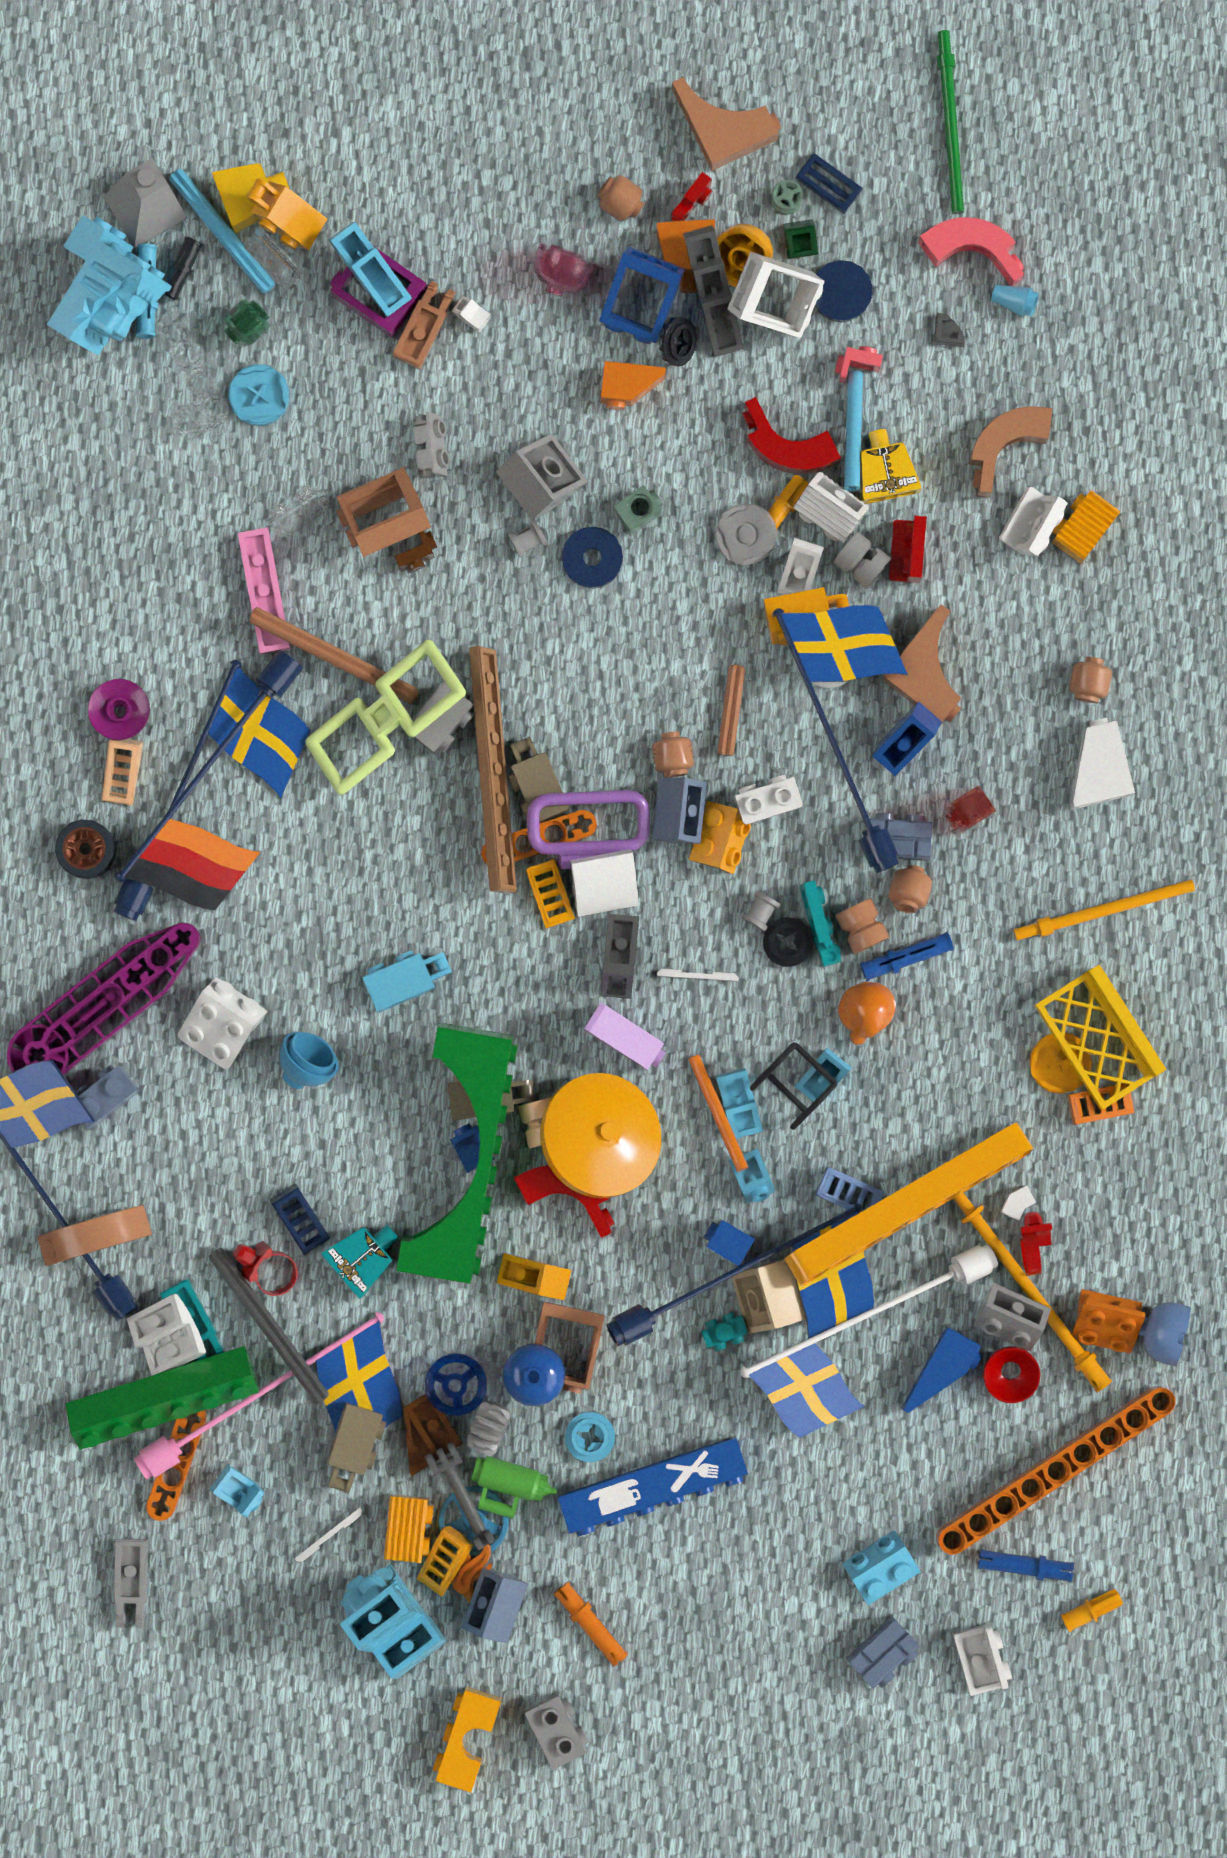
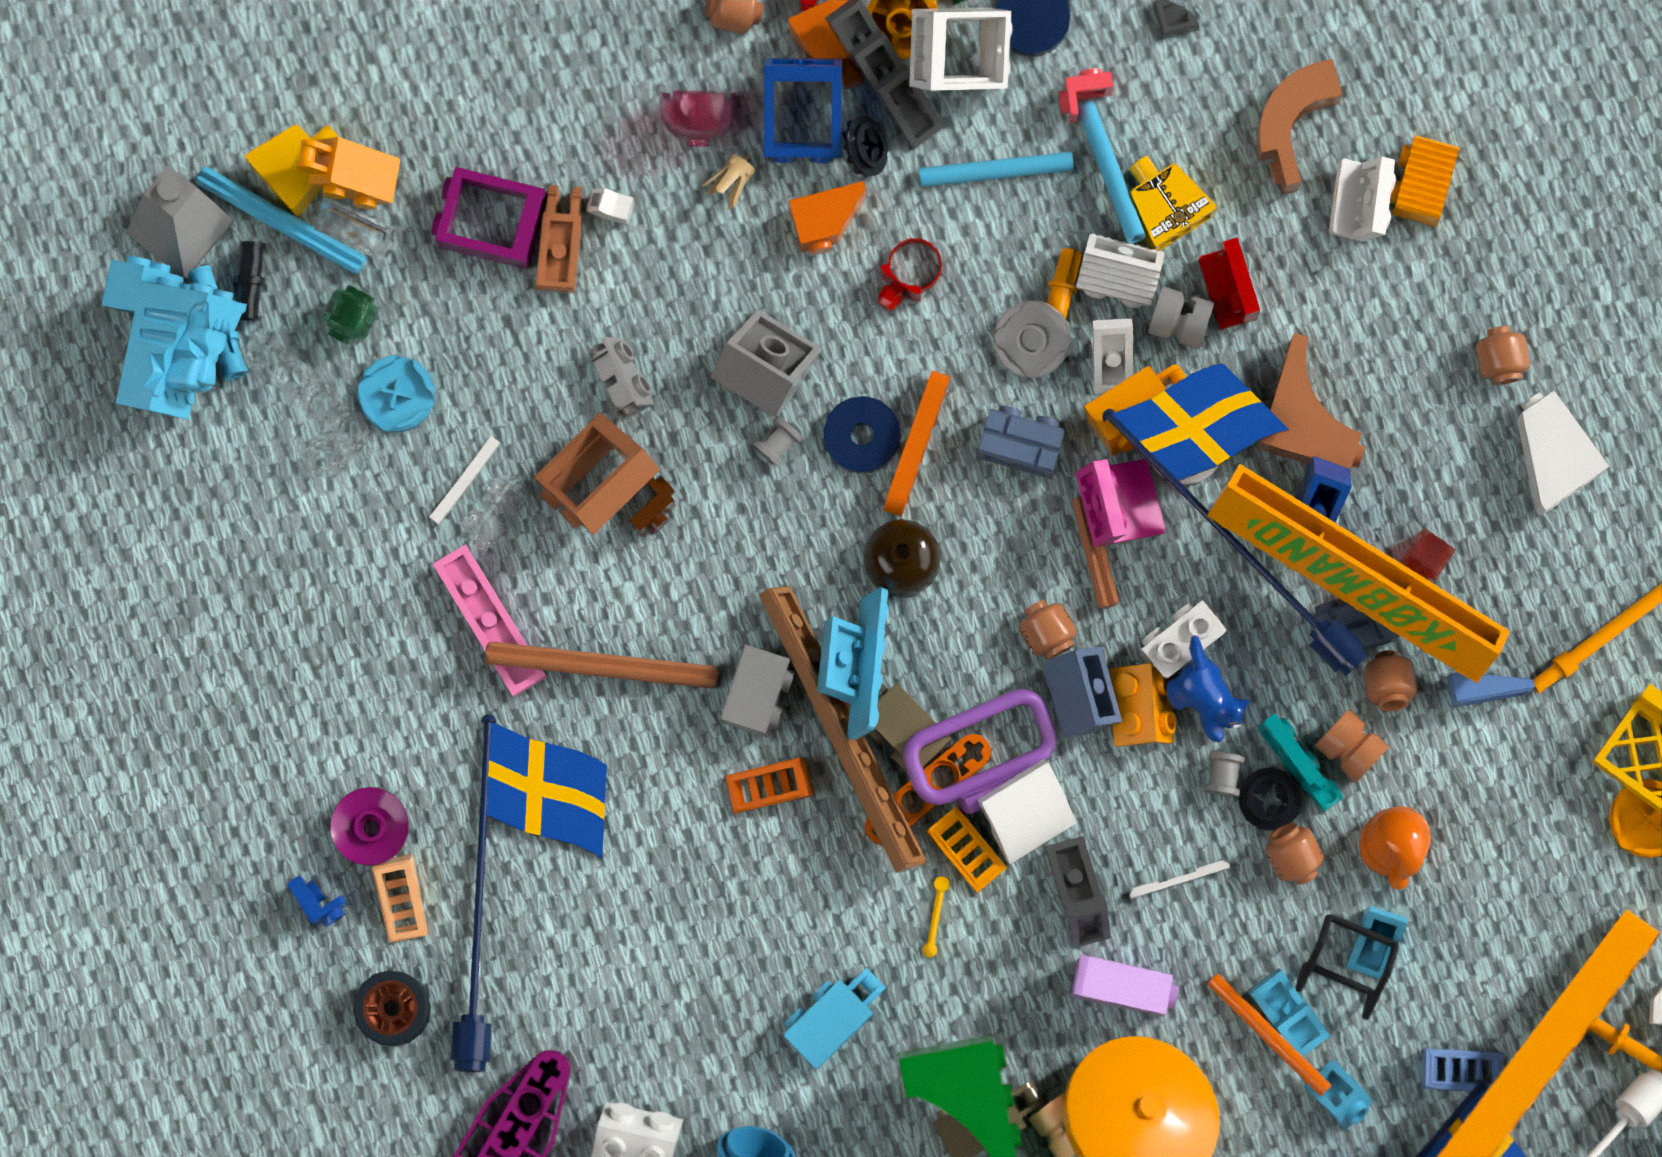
camera: 15 degrees left, 5 degrees down
(55, 745) = (309, 898): none -> blue bracket
(188, 858) = (523, 972): flag -> none
(285, 479) = (465, 480): none -> white piece
(370, 268) = (473, 196): medium azure slope -> none
(385, 716) = (691, 713): yellowish green bar -> none
(449, 798) = (802, 779): none -> orange slope
(518, 724) = (853, 662): none -> medium azure bracket
(522, 912) = (941, 884): none -> yellow hinge
(573, 322) = (735, 170): none -> tan piece
(586, 660) = (902, 558): none -> dark brown cylinder
(630, 579) = (916, 443): none -> orange beam
(631, 521) = (894, 375): sand green brick -> none
(654, 462) = (891, 295): none -> red piece
(707, 607) = (1021, 441): none -> sand blue brick
(763, 680) = (1119, 501): none -> dark pink bracket
(769, 395) = (996, 169): none -> medium azure piece
(770, 844) = (1204, 690): none -> blue animal
(787, 455) = (1043, 229): red arch -> none
(789, 988) = (1294, 853): none -> nougat head
(876, 967) = (1384, 792): blue pin -> none
(915, 801) = (1358, 573): none -> light orange brick
(972, 919) = (1489, 688): none -> medium blue slope

